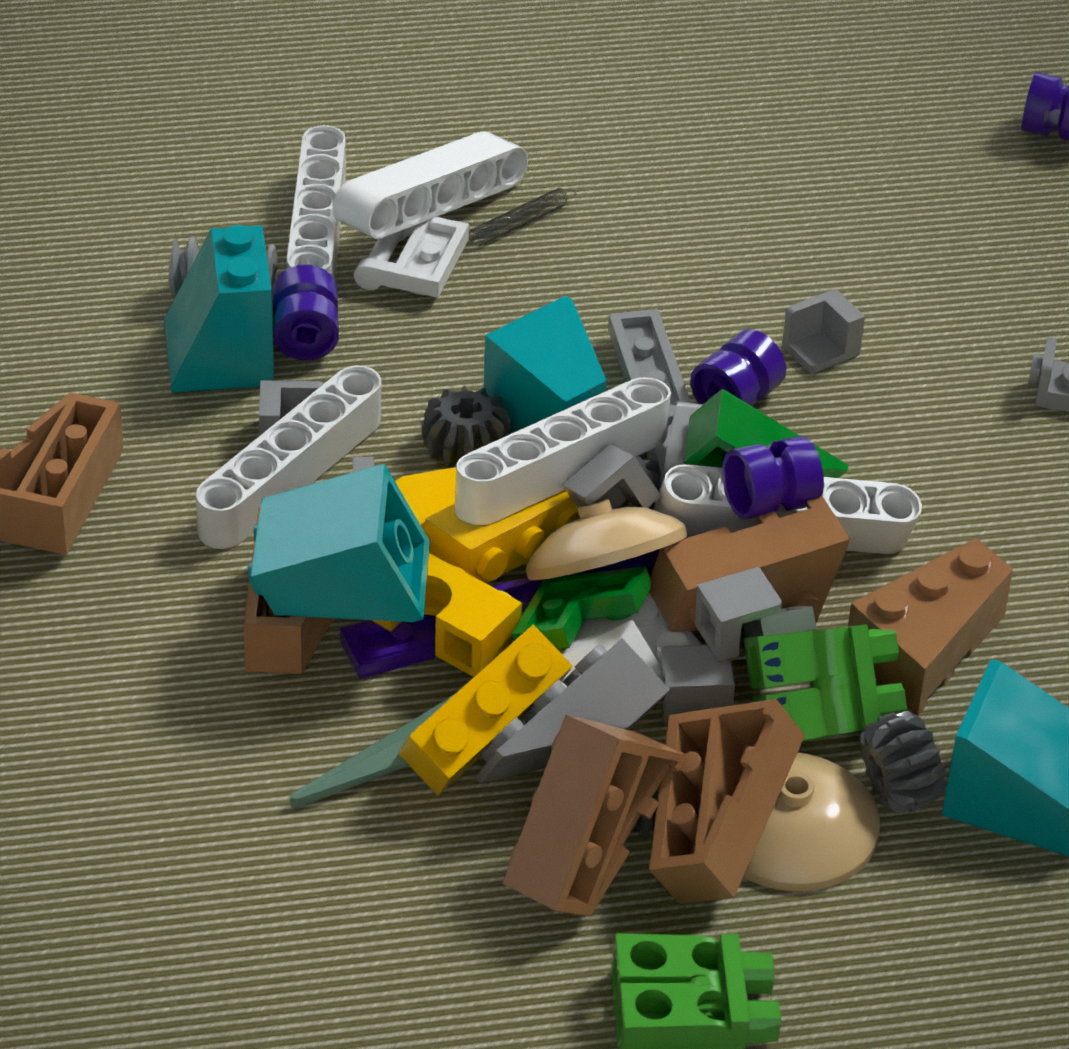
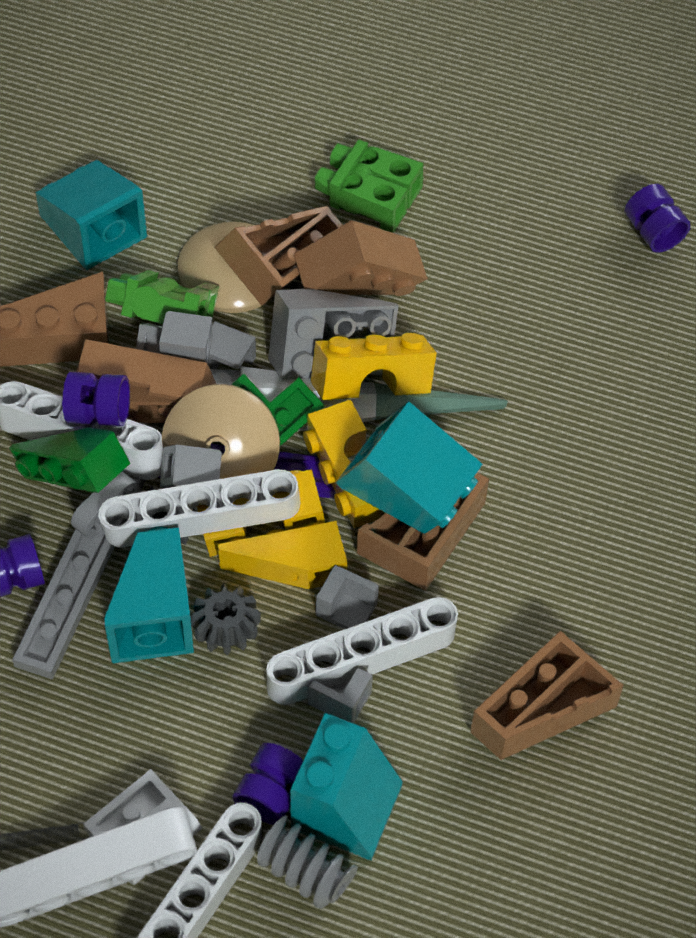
camera: 150 degrees left, 15 degrees up
(902, 761) = (158, 240): dark grey gear -> none

